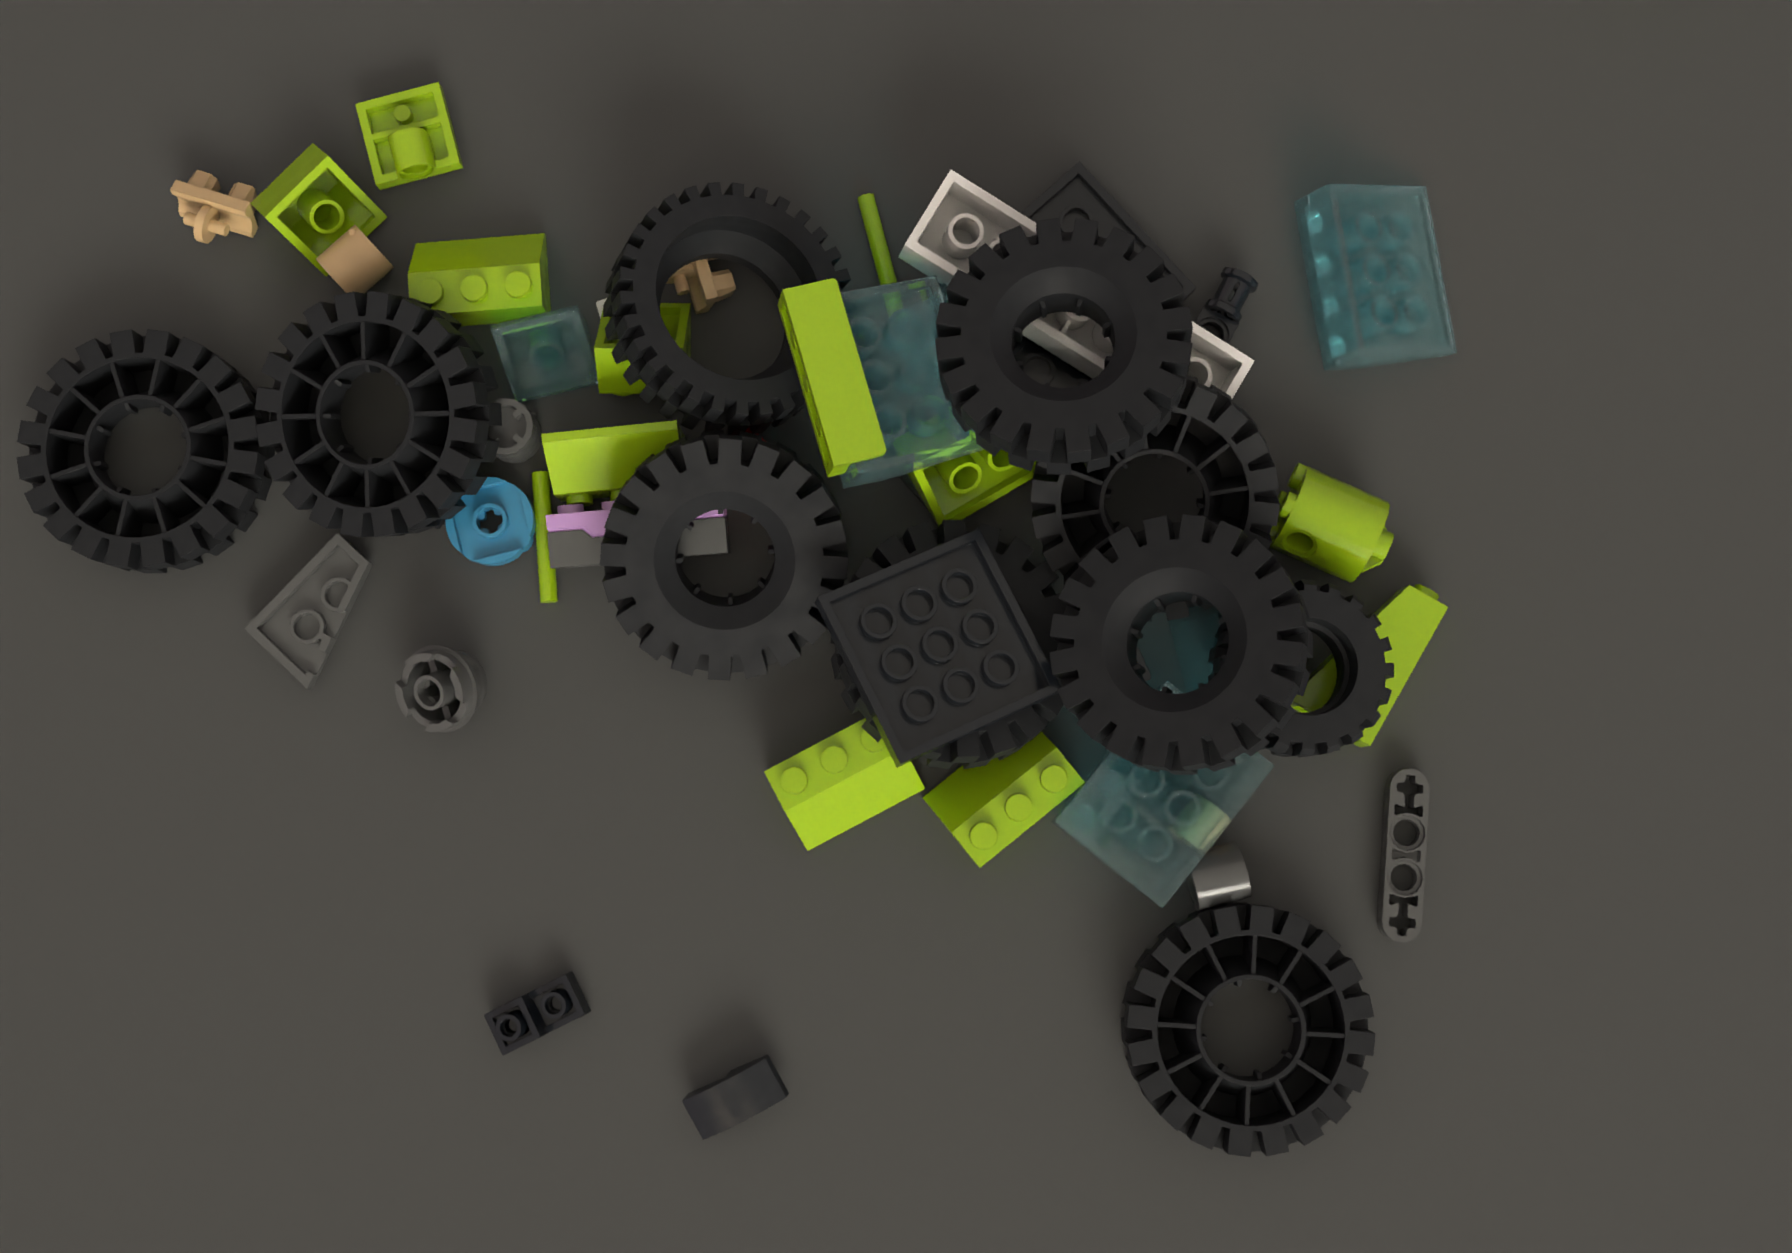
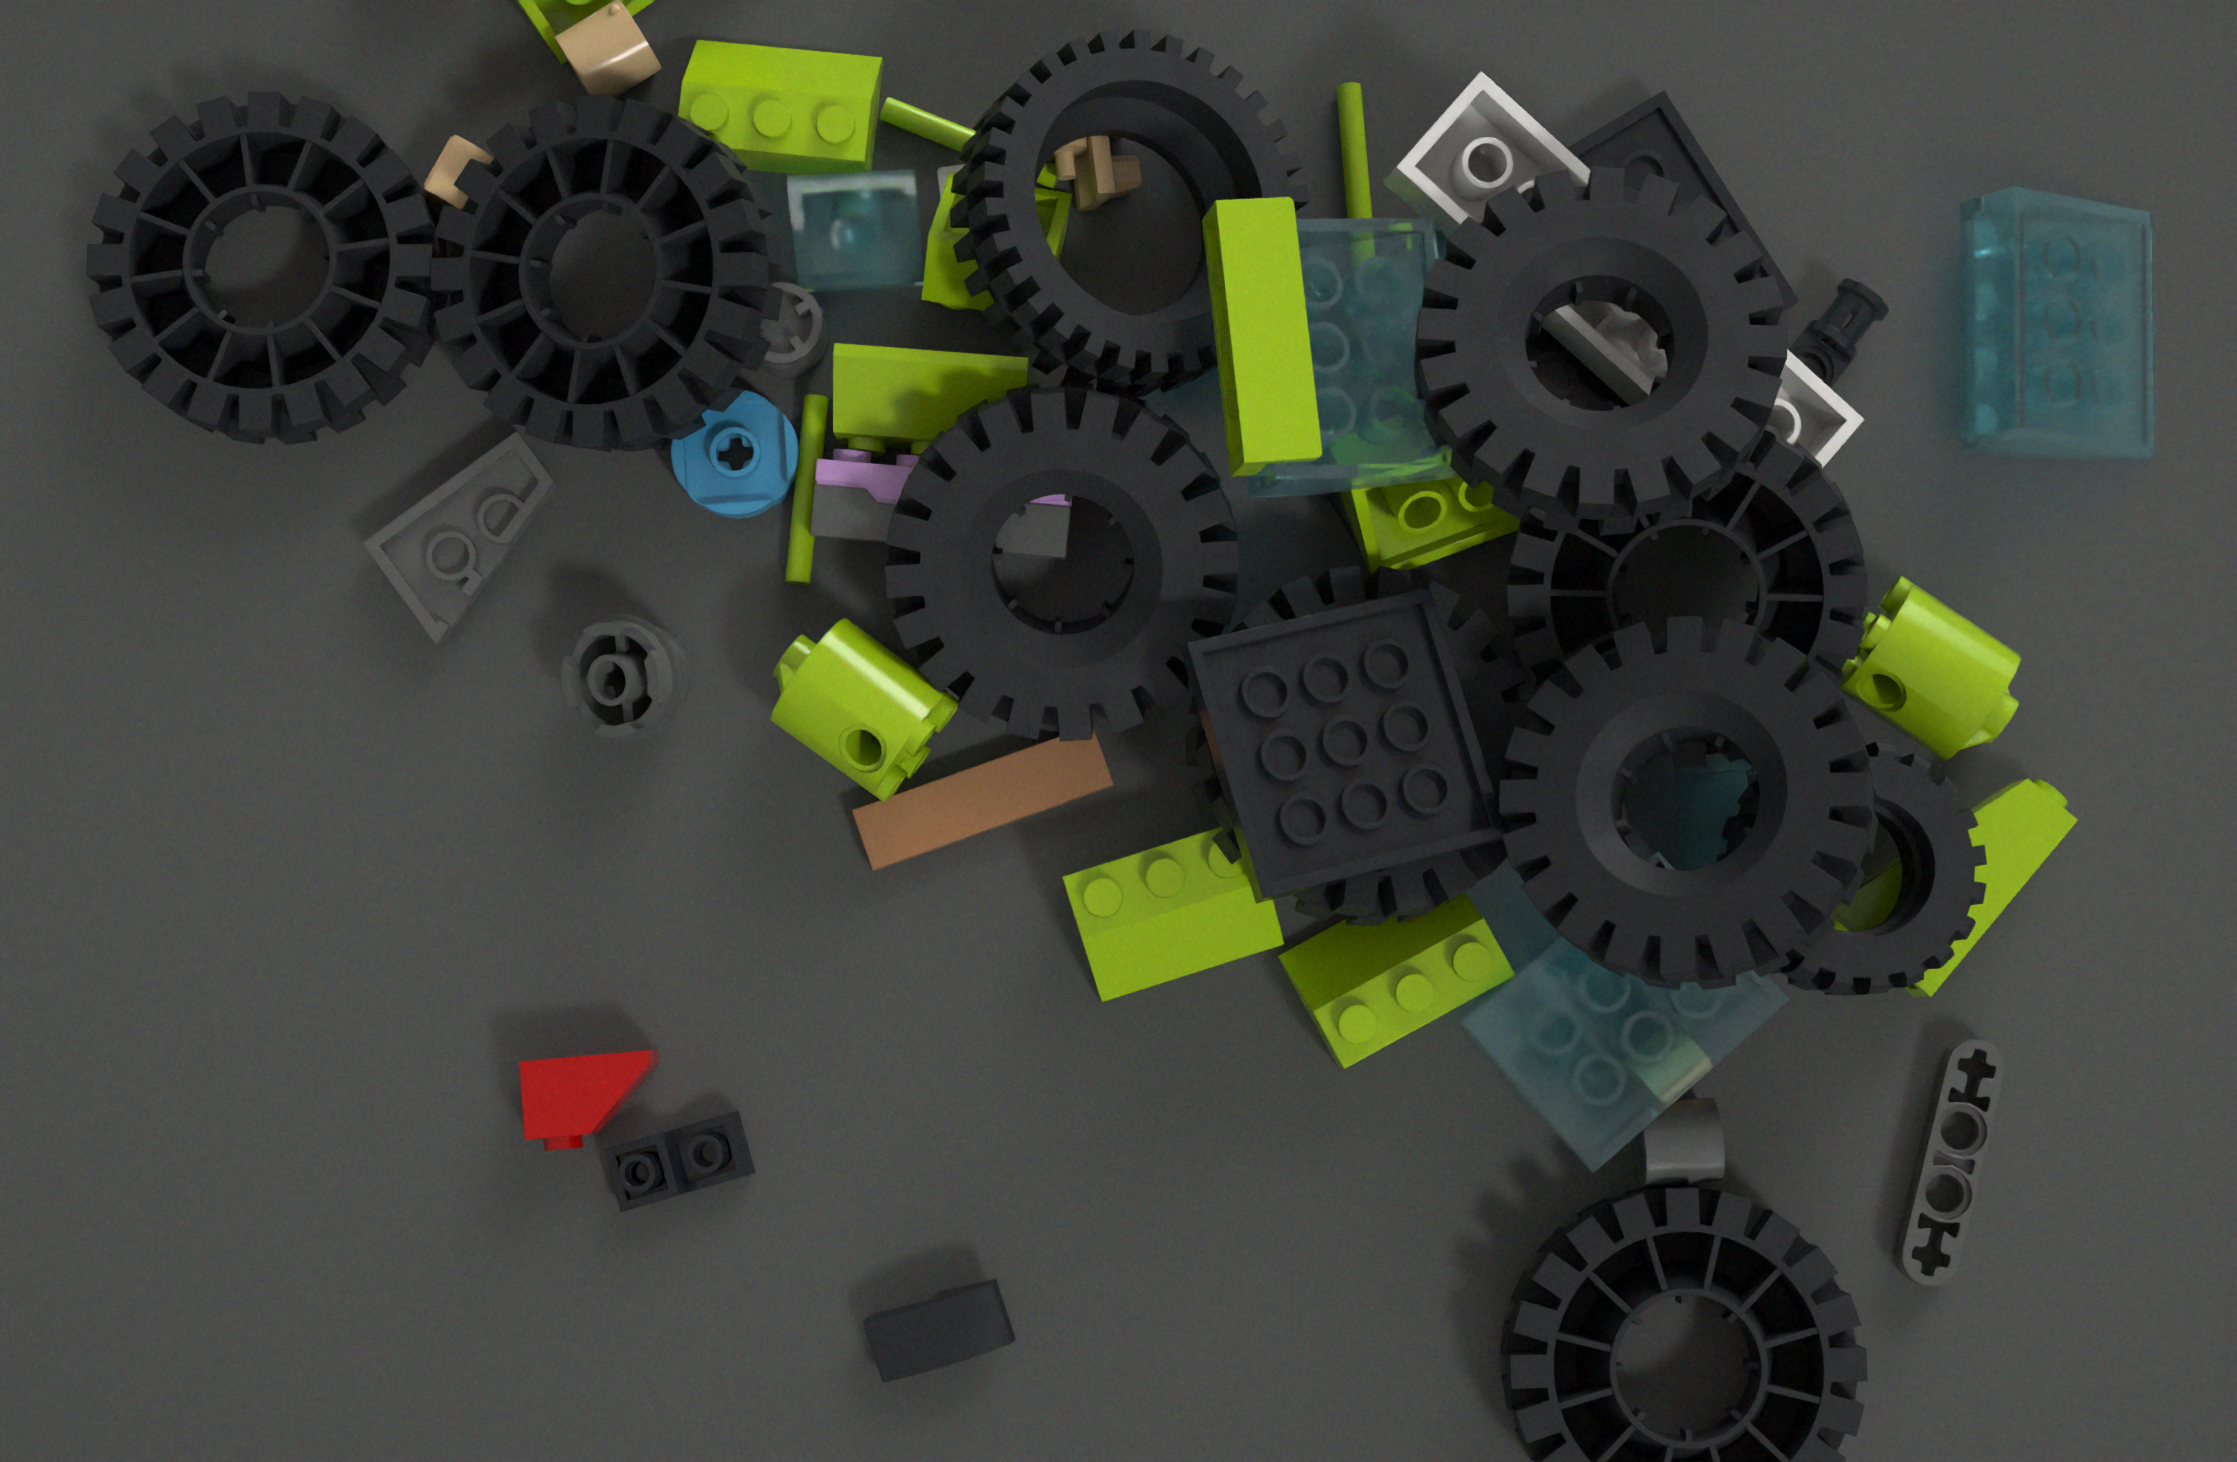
camera: 10 degrees right, 0 degrees up
(257, 360) = (446, 170): none -> tan brick
(459, 980) = (578, 1094): none -> red slope
(596, 276) = (943, 131): none -> lime bar
(604, 680) = (859, 707): none -> lime cylinder
(700, 727) = (981, 799): none -> medium nougat tile

